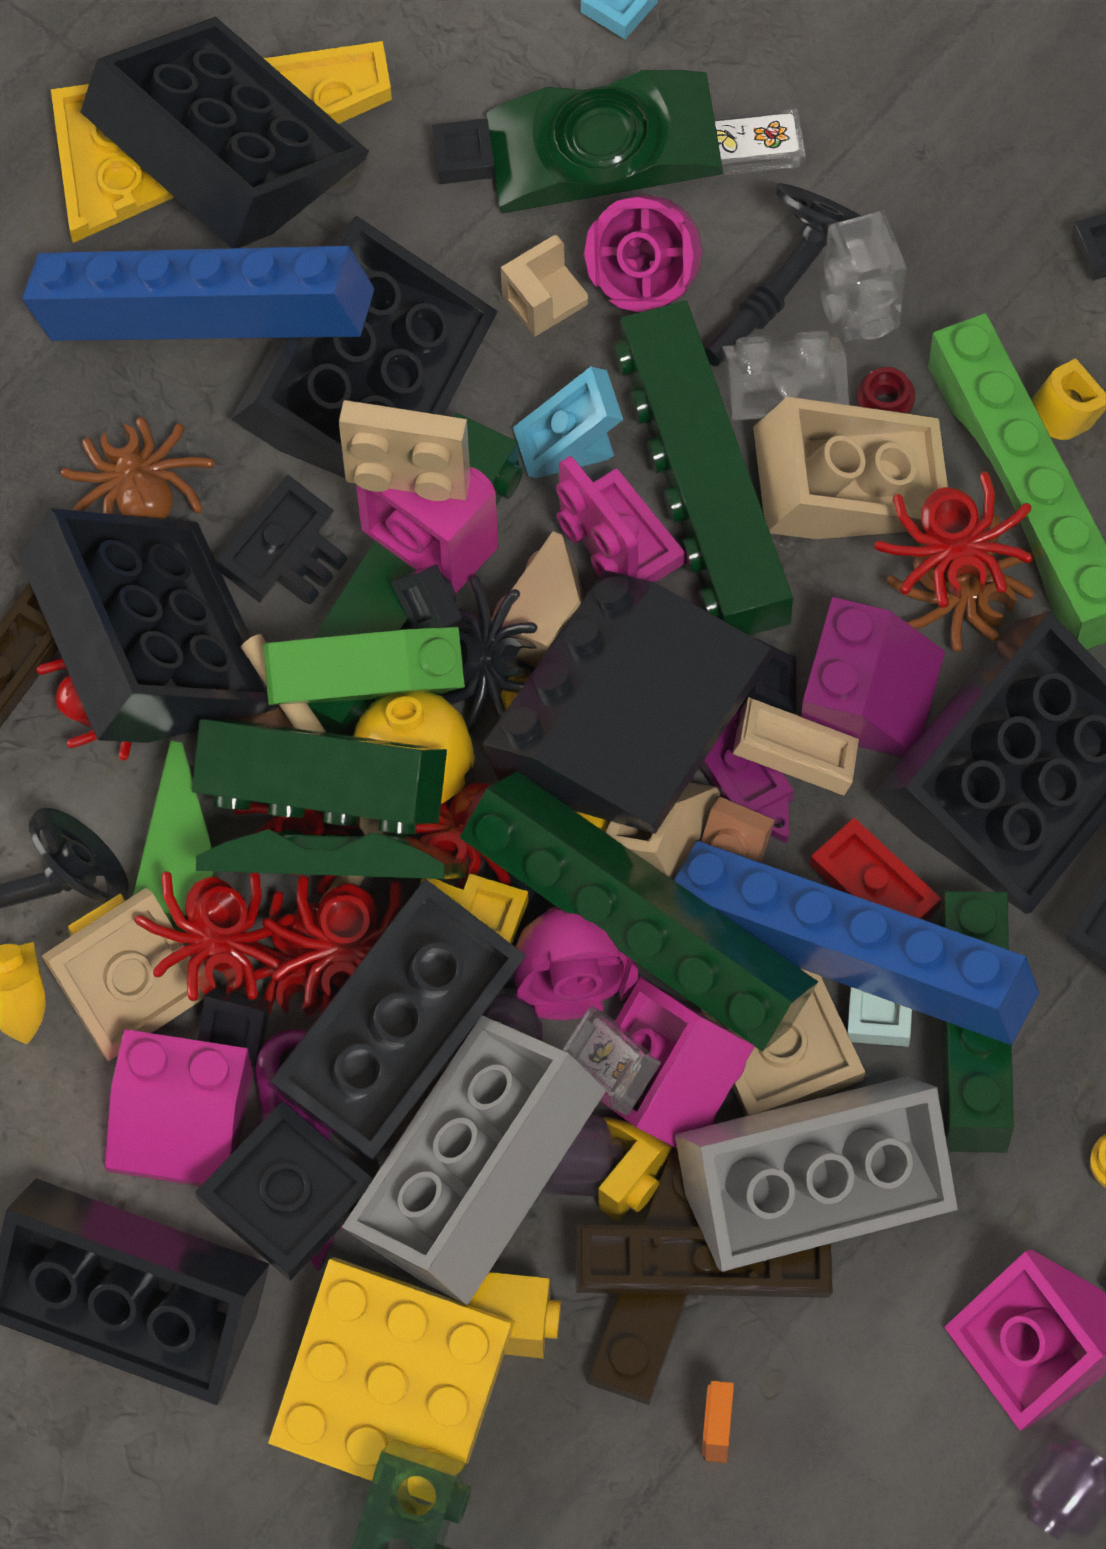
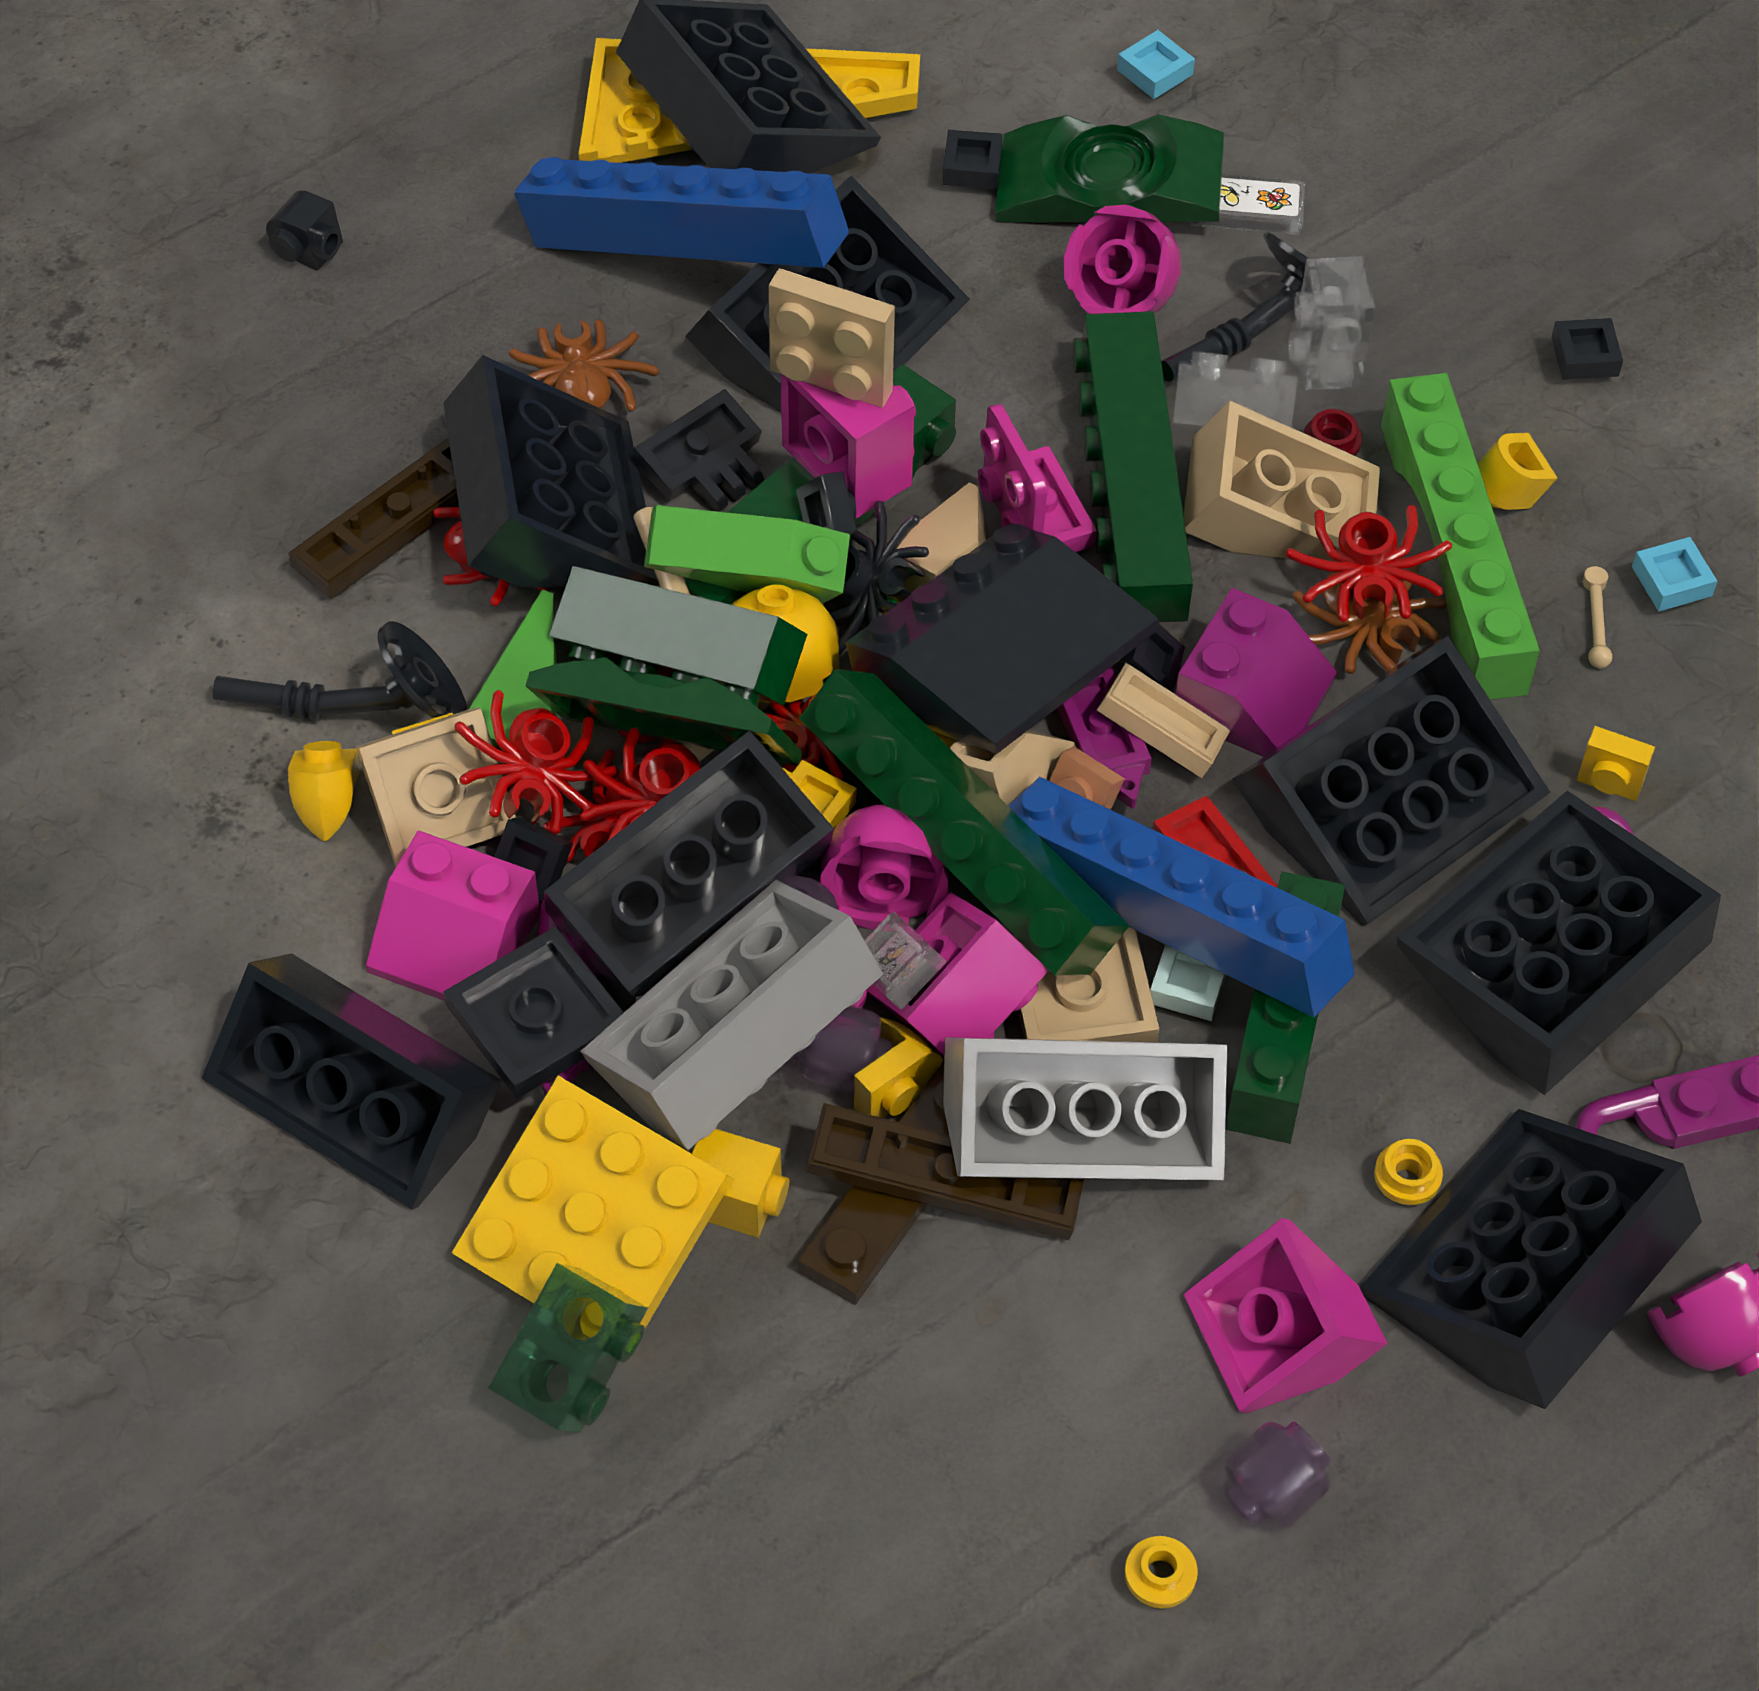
camera: 10 degrees right, 10 degrees down
(542, 287) = (1016, 282): tan panel -> none
(570, 425) = (1024, 390): medium azure slope -> none
(717, 1421) = (921, 1329): orange tile -> none

